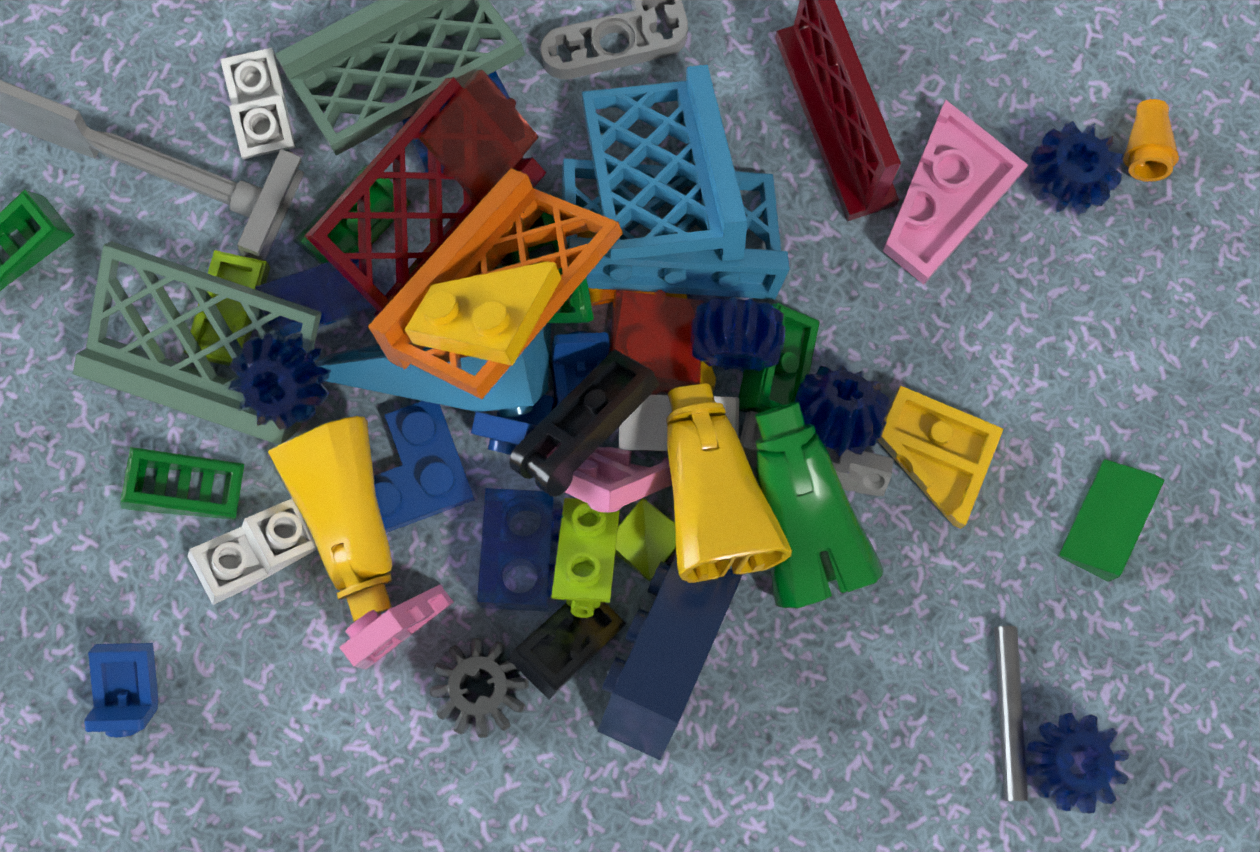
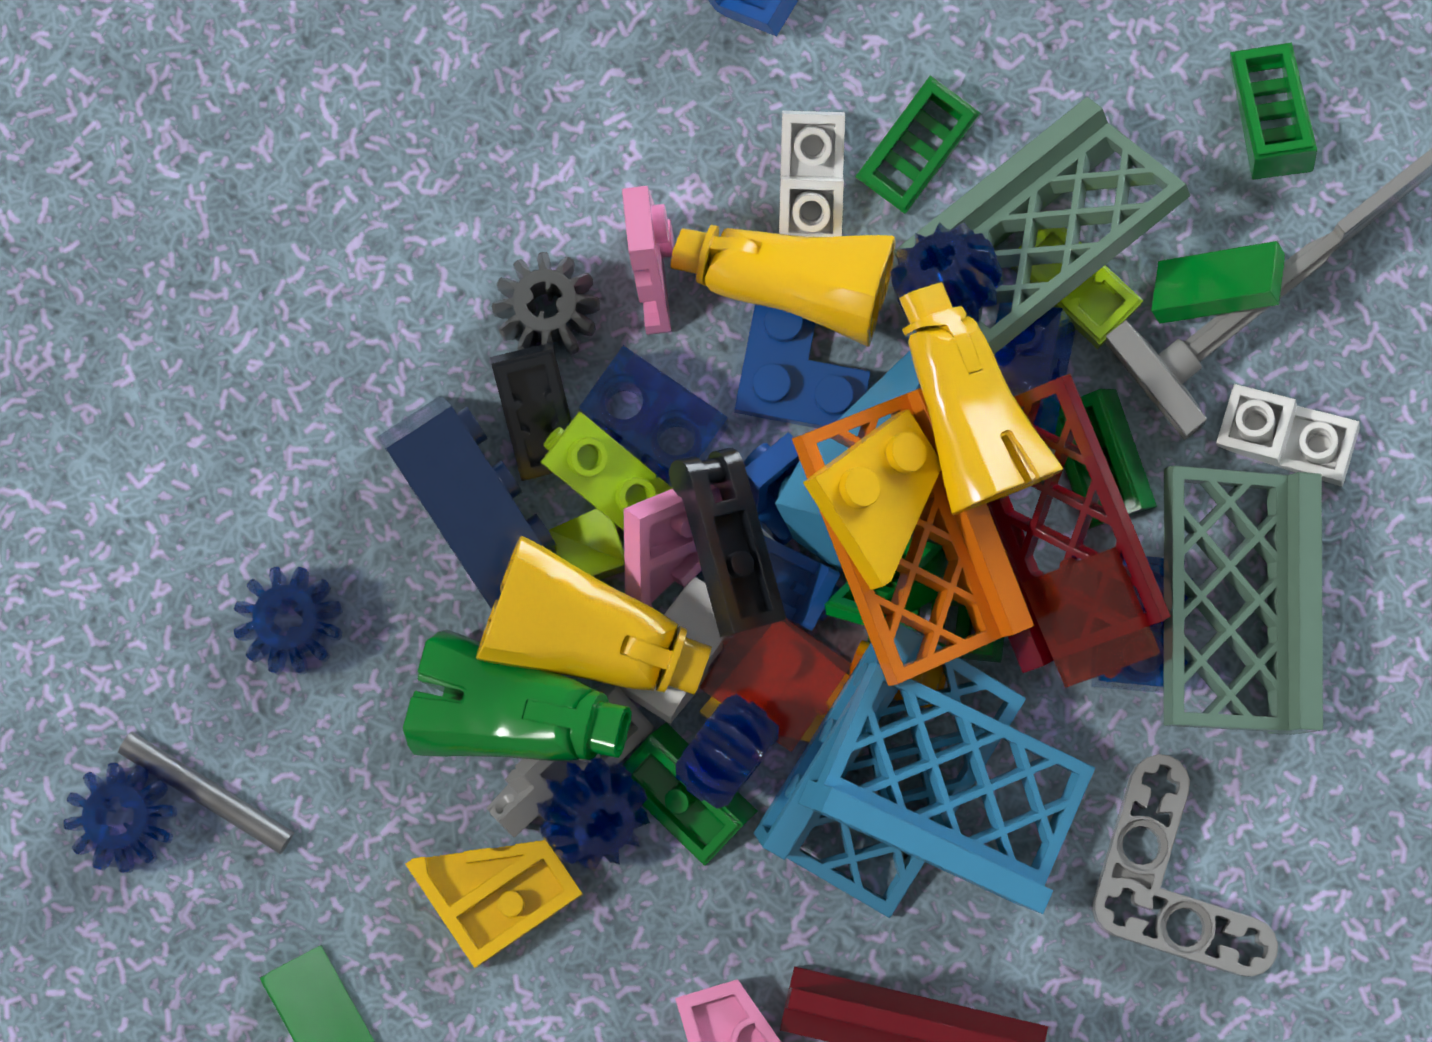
camera: 125 degrees right, 5 degrees up
(169, 200) = (1218, 282): none -> green tile
(393, 263) = (977, 424): none -> yellow piece
(841, 750) = (278, 601): none -> clear blue gear

